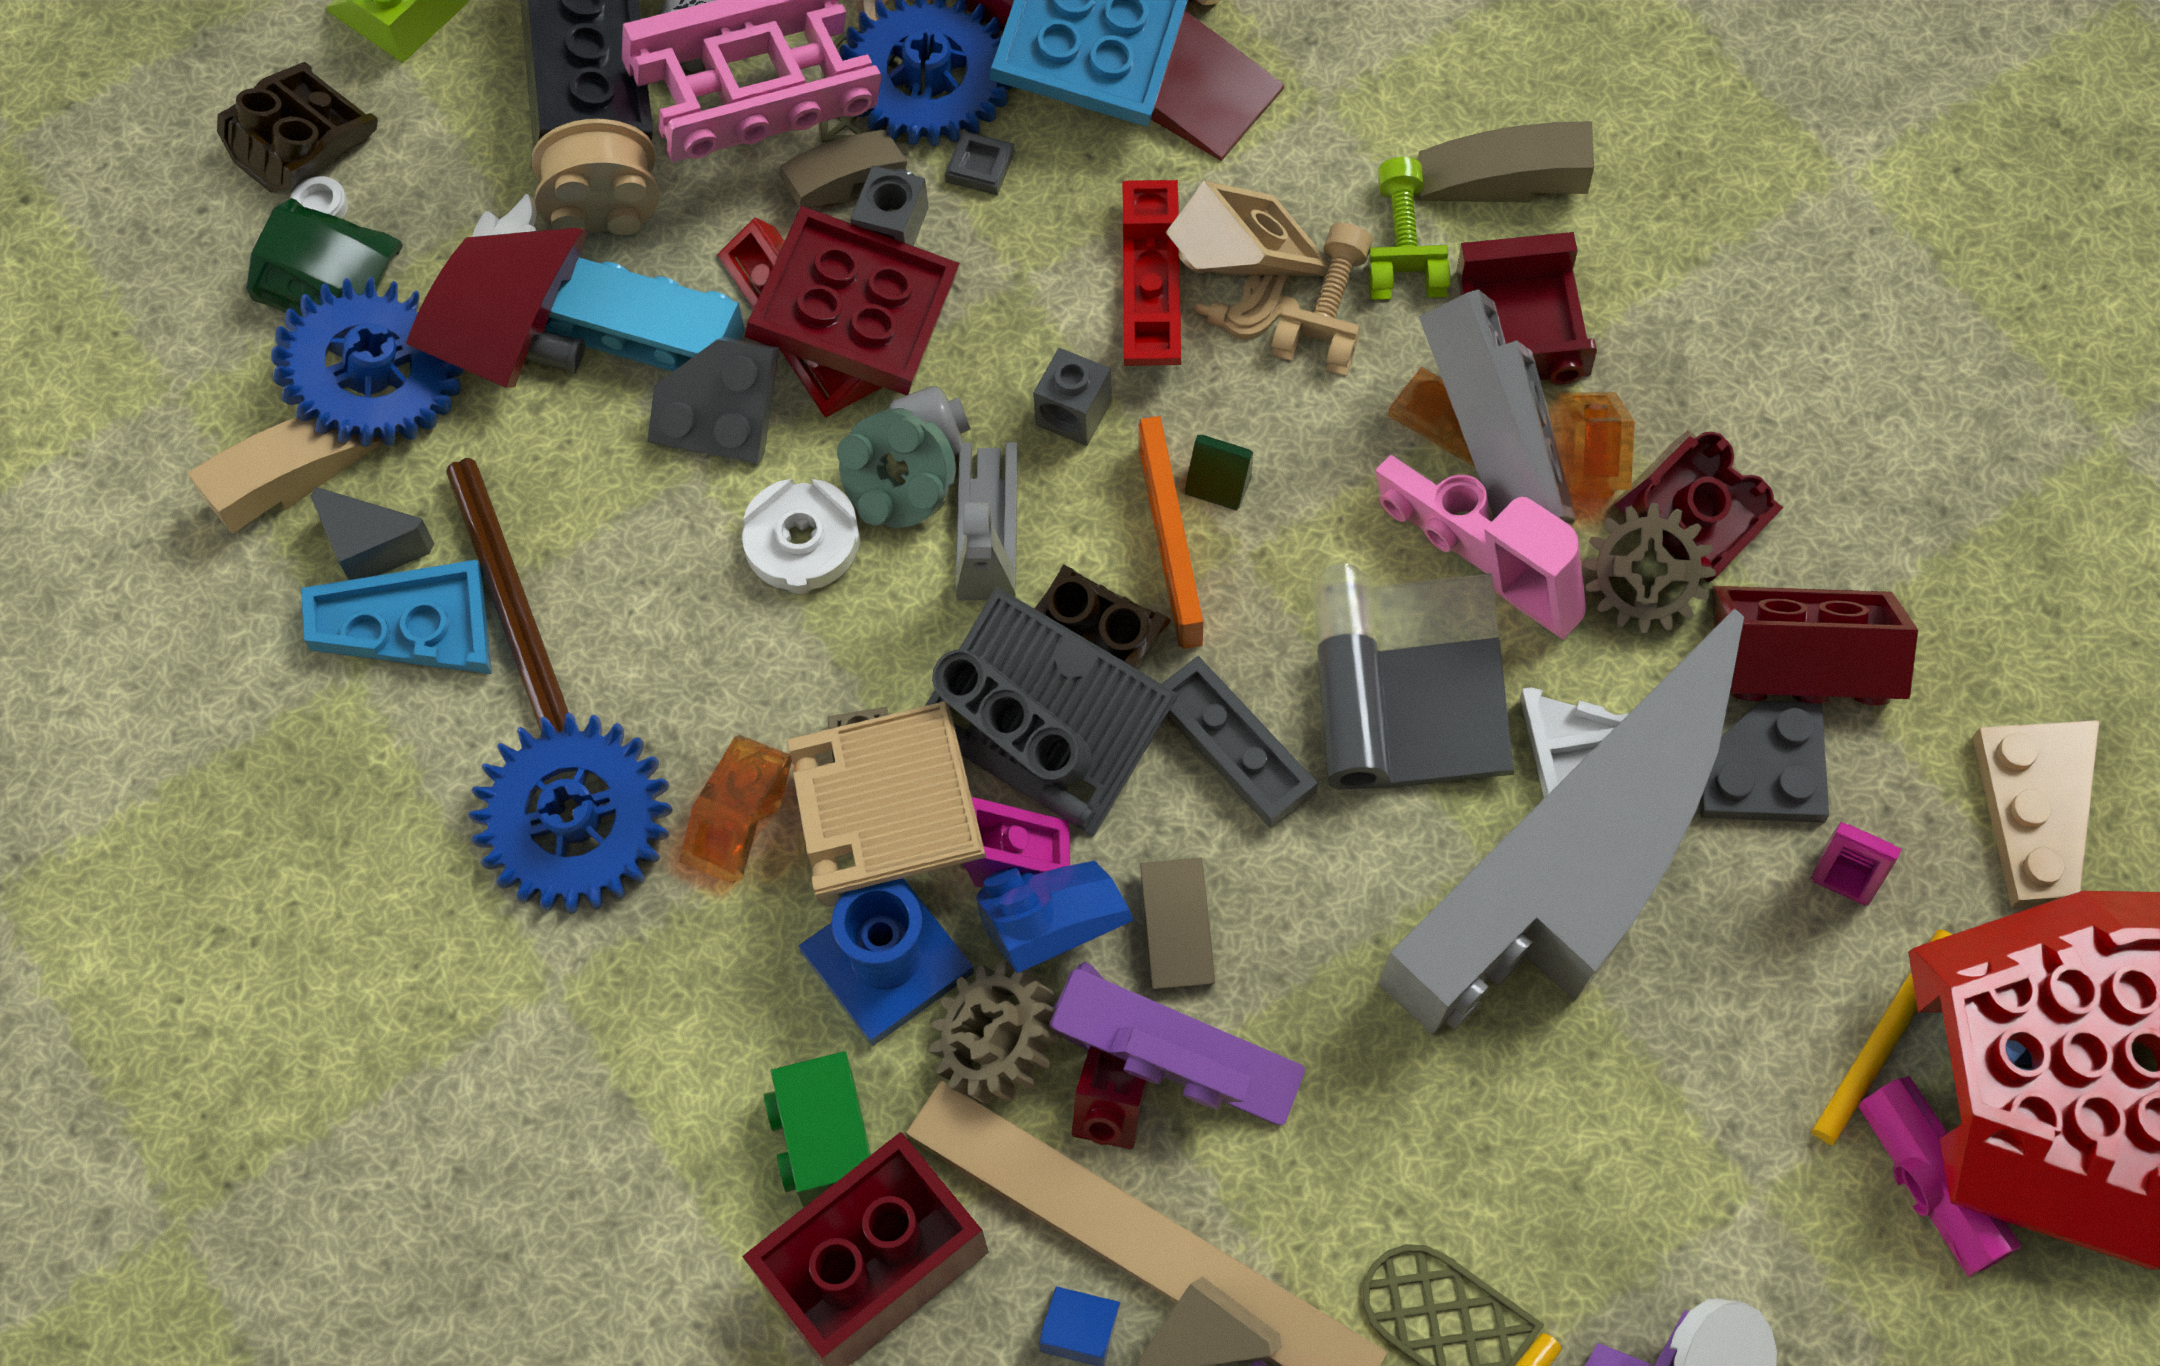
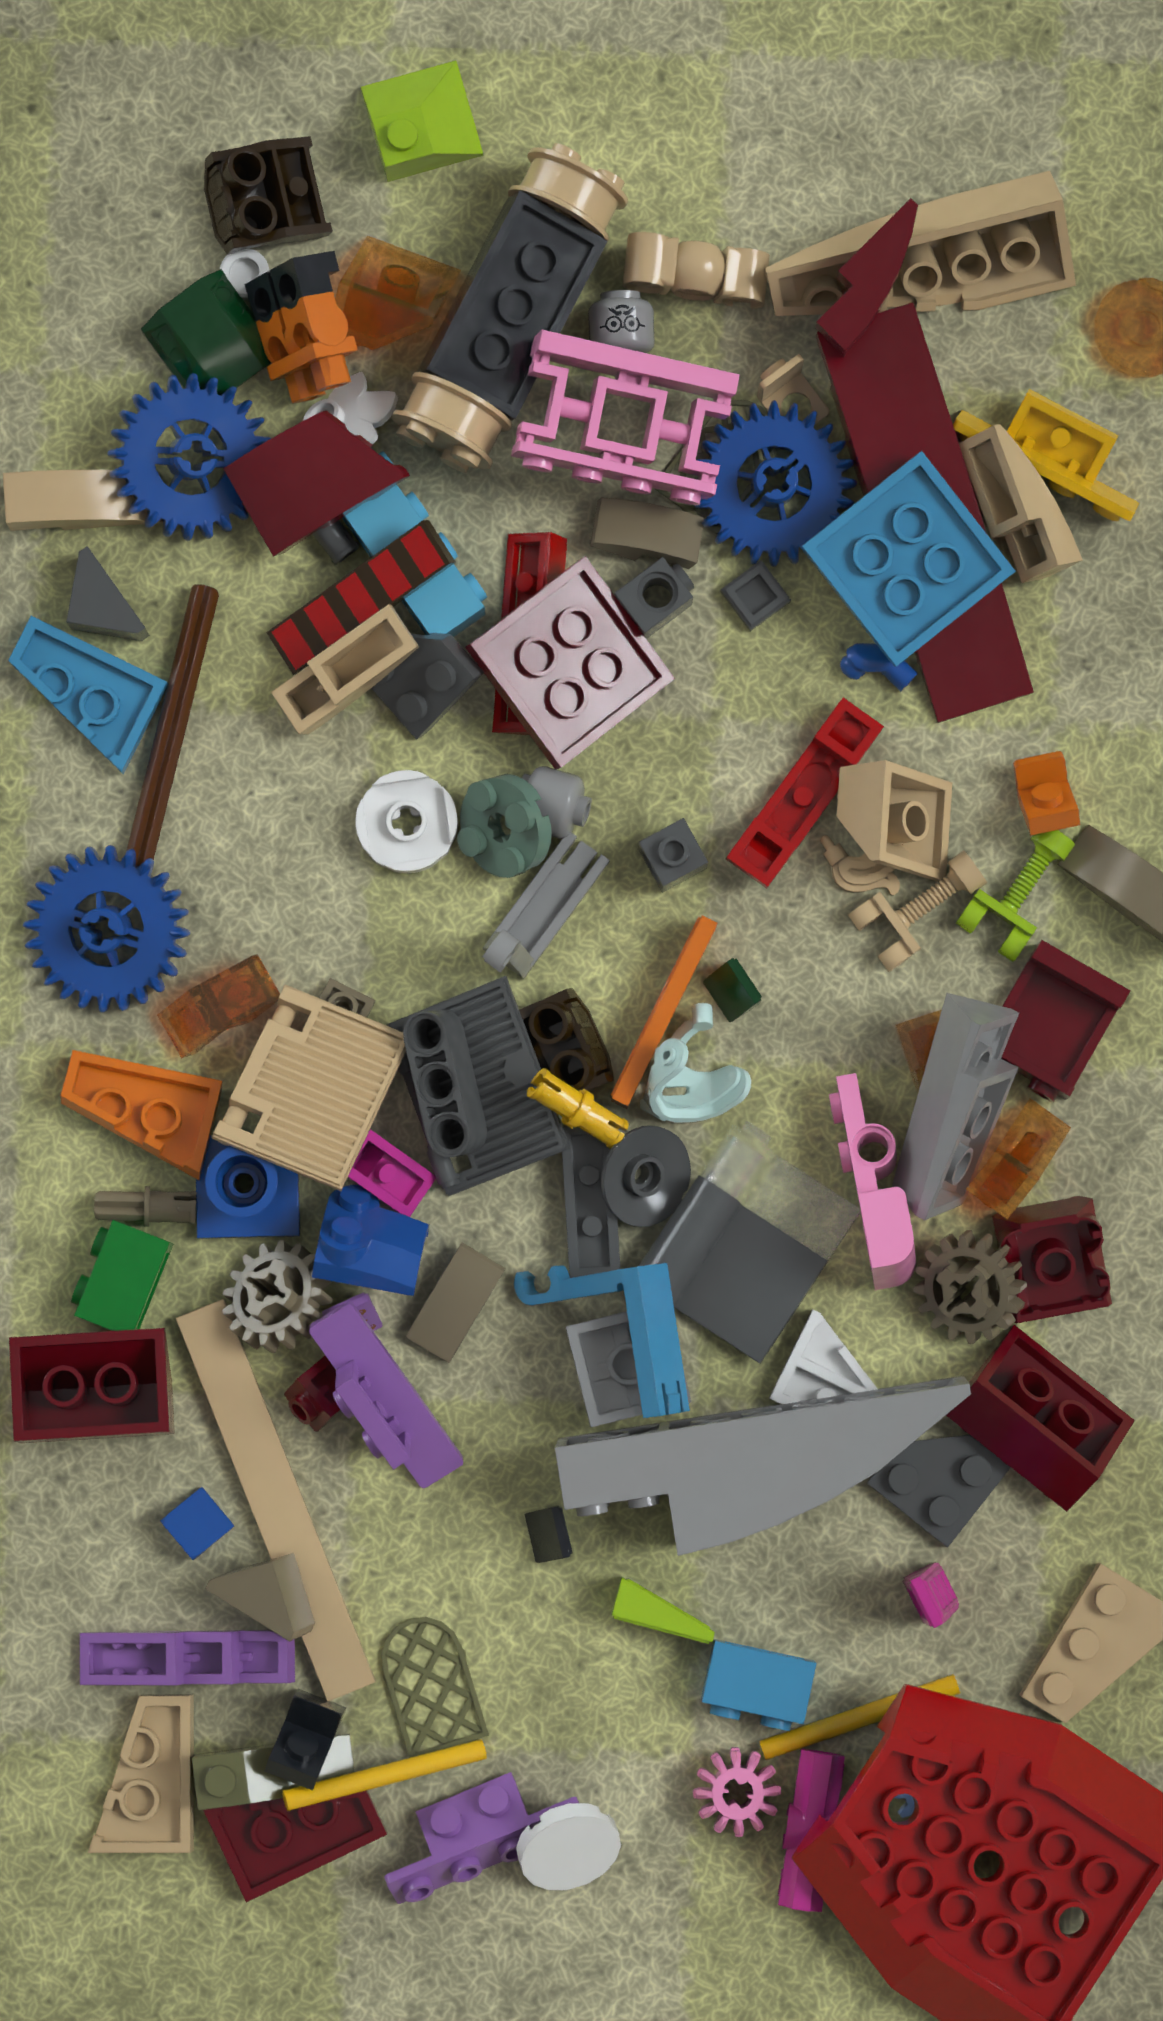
camera: 30 degrees right, 20 degrees up
(398, 185) = (302, 325): none -> orange hips
(462, 137) = (392, 293): none -> clear orange slope
(615, 366) = (363, 592): none -> tile
(645, 432) = (345, 670): none -> tan slope
(727, 948) = (146, 1105): none -> orange wing
(797, 1043) = (146, 1206): none -> dark tan axle
(1132, 140) = (869, 658): none -> blue arm
(1158, 649) = (577, 1108): none -> yellow pin
(1264, 582) = (706, 1092): none -> light aqua helmet
(1269, 679) = (662, 1178): none -> dark grey dish
(1357, 746) = (650, 1324): none -> dark azure hinge
(1361, 145) = (1045, 793): none -> orange bracket
(1391, 852) = (606, 1368): none -> light grey container
(1445, 1074) = (548, 1534): none -> black slope
(1605, 1074) = (646, 1609): none -> lime slope
(1765, 1068) = (758, 1683): none -> dark azure piece
(1808, 1189) = (741, 1774): none -> bright pink gear

